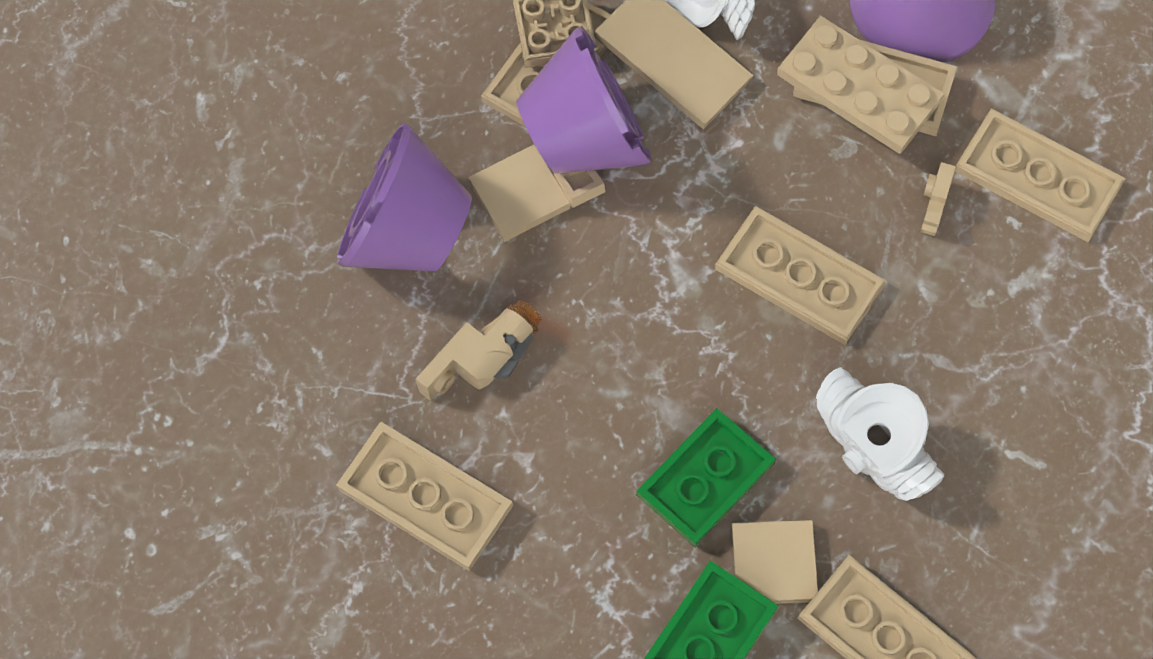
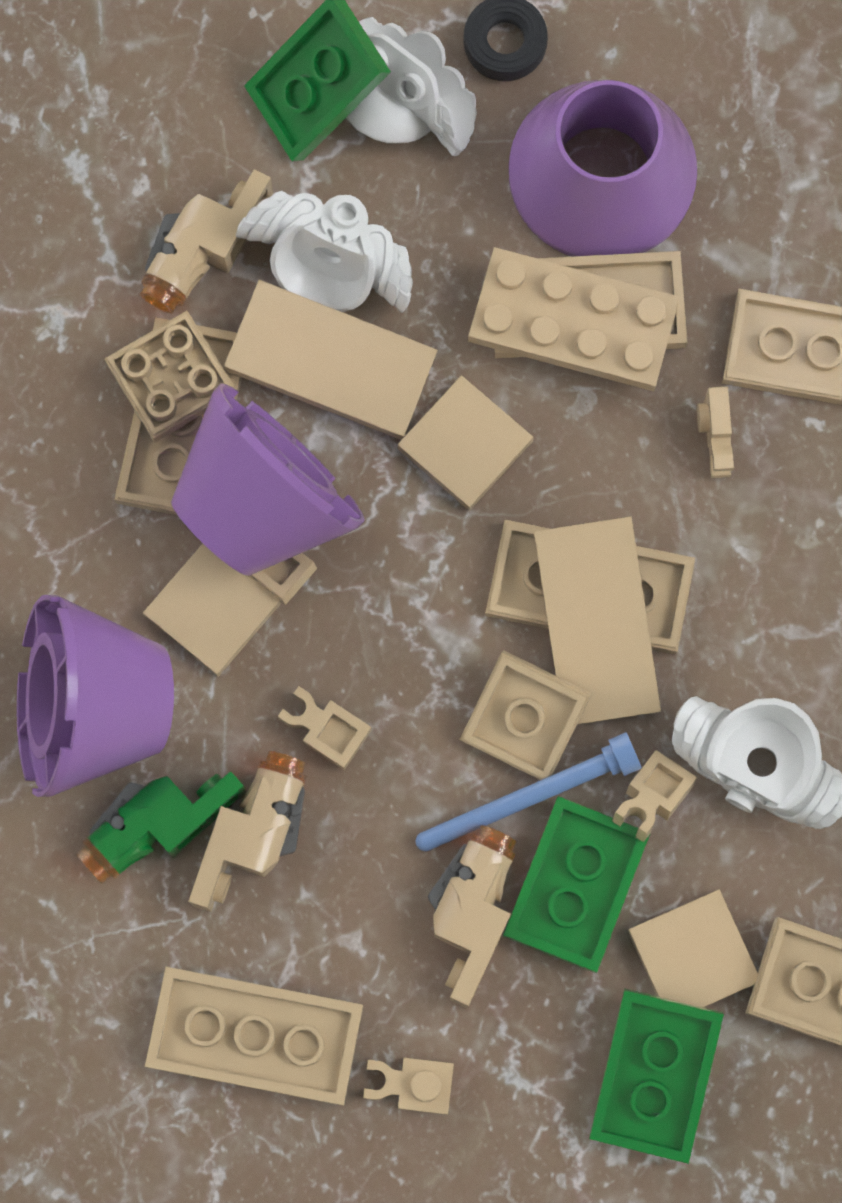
camera: 25 degrees left, 10 degrees up
(416, 315) = (150, 815): none -> green plate
(529, 578) = (420, 1085): none -> tan plate
(567, 304) = (331, 732): none -> tan plate
(616, 468) = (465, 907): none -> tan plate
(715, 345) = (525, 716): none -> tan tile
(748, 145) = (465, 442): none -> tan tile
(771, 396) = (616, 758): none -> medium blue piece
(790, 430) = (655, 790): none -> tan plate
(794, 296) = (599, 616): none -> tan tile

